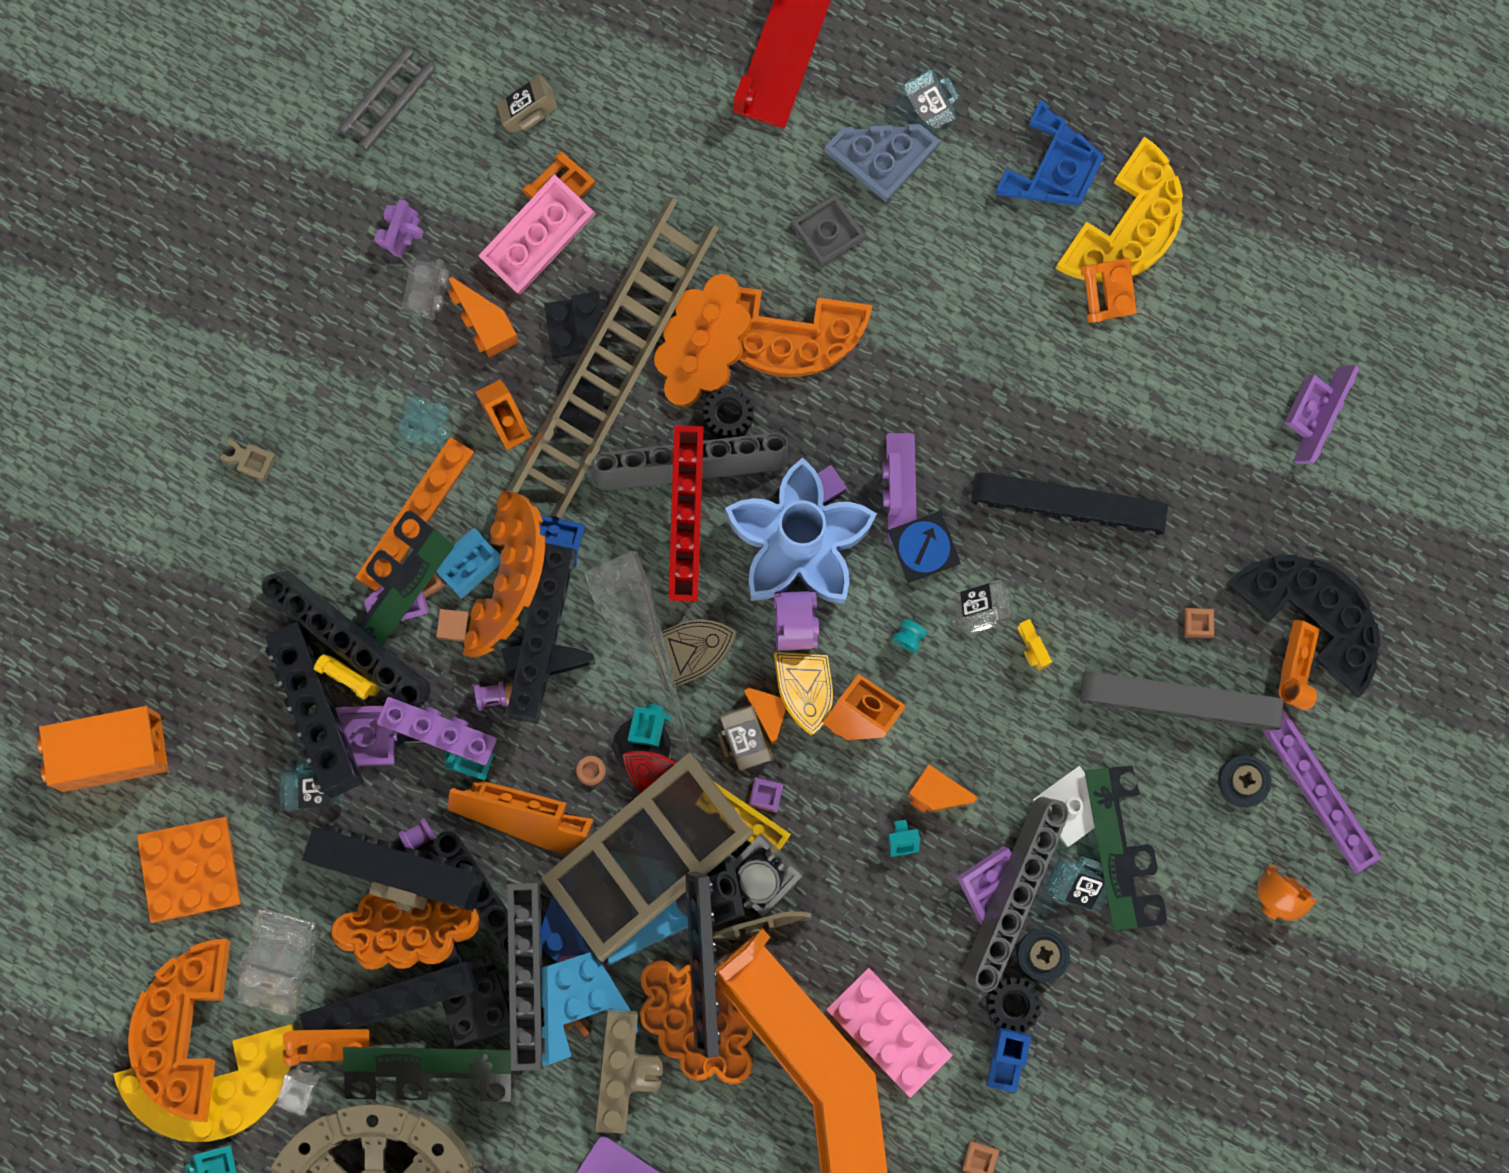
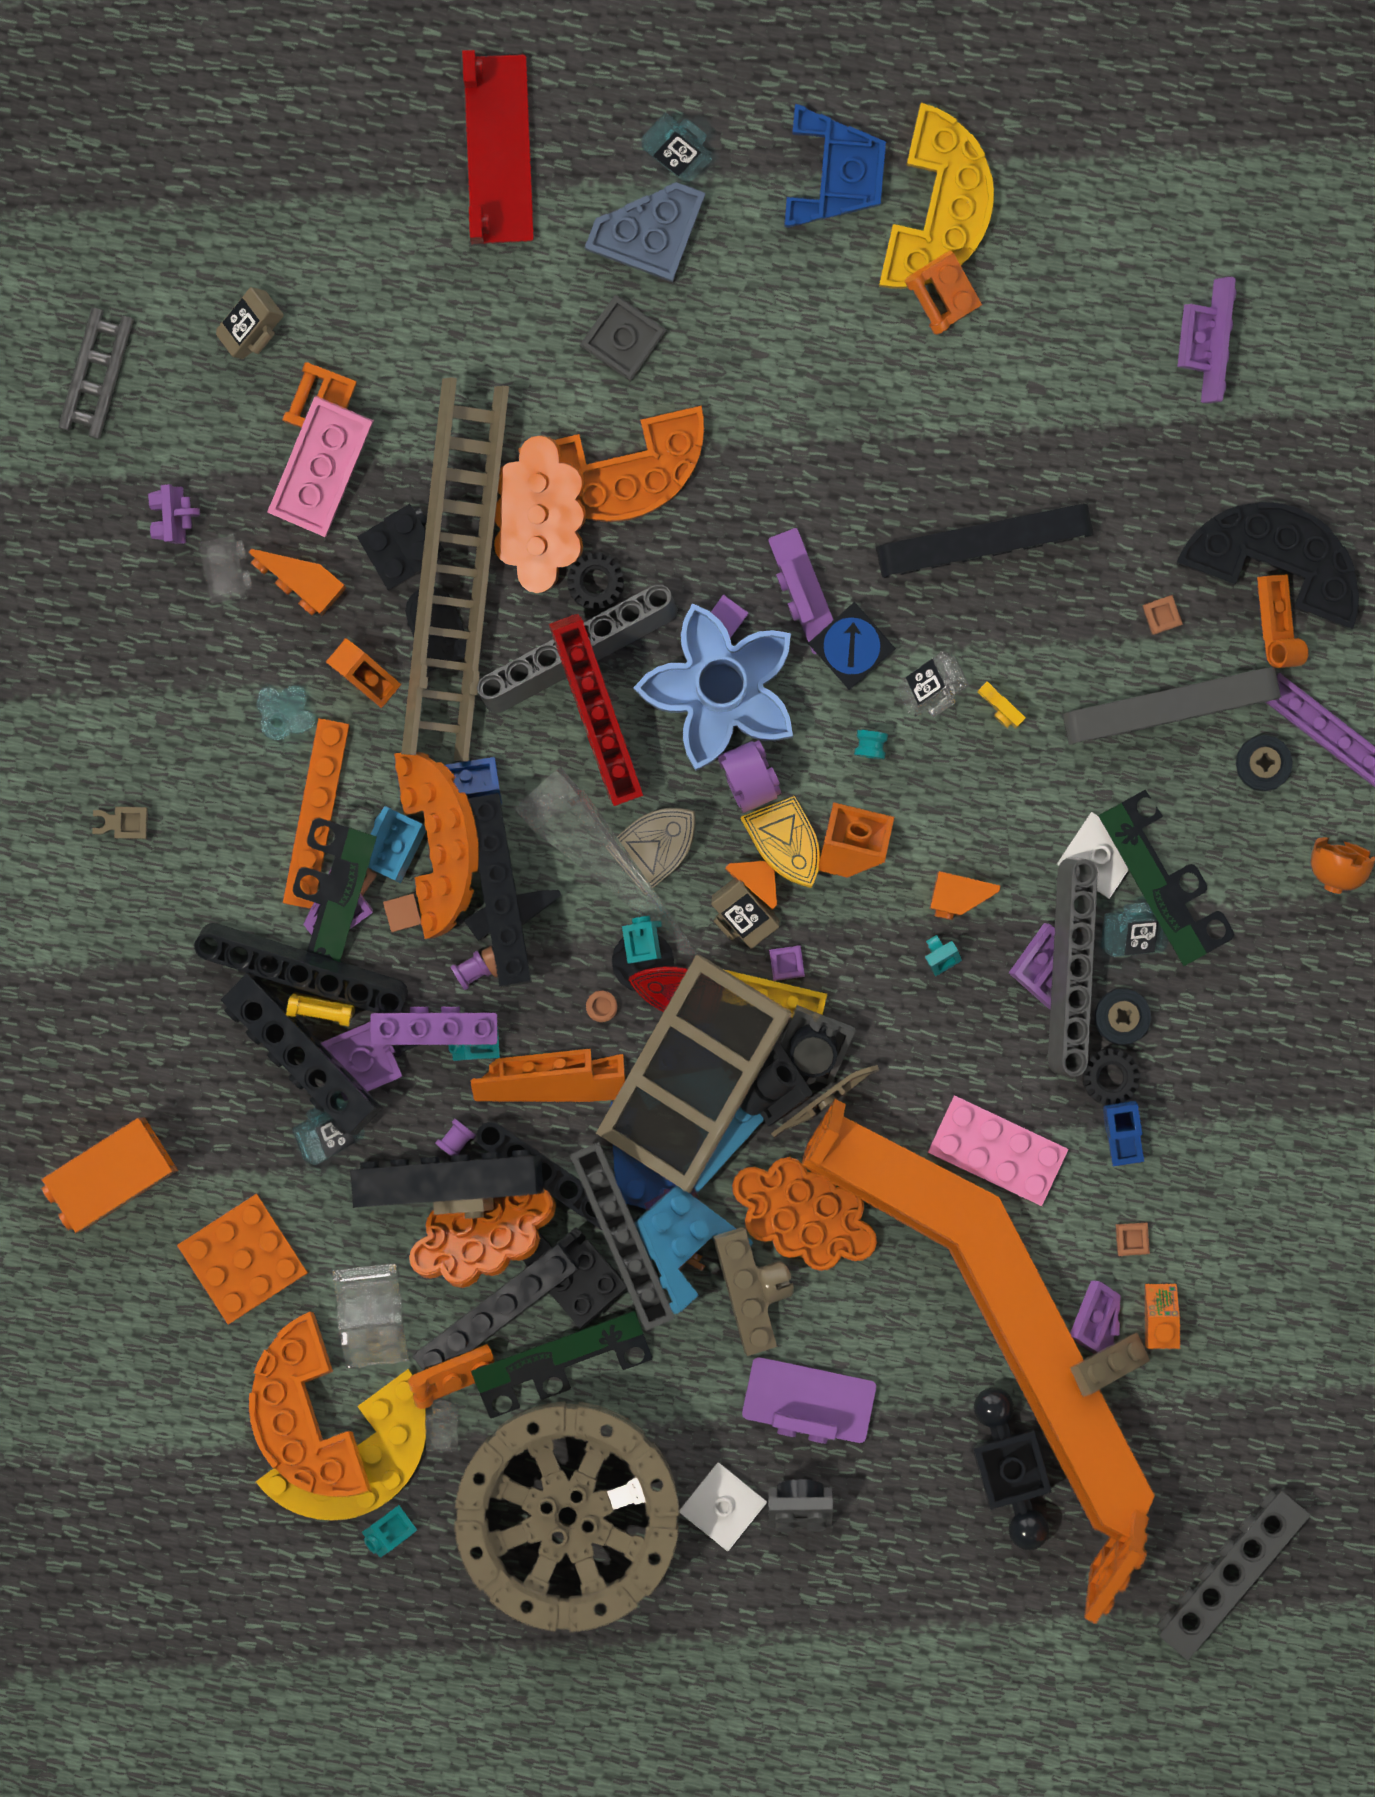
camera: 15 degrees left, 10 degrees up
(702, 953) = (789, 1157): black plate -> none

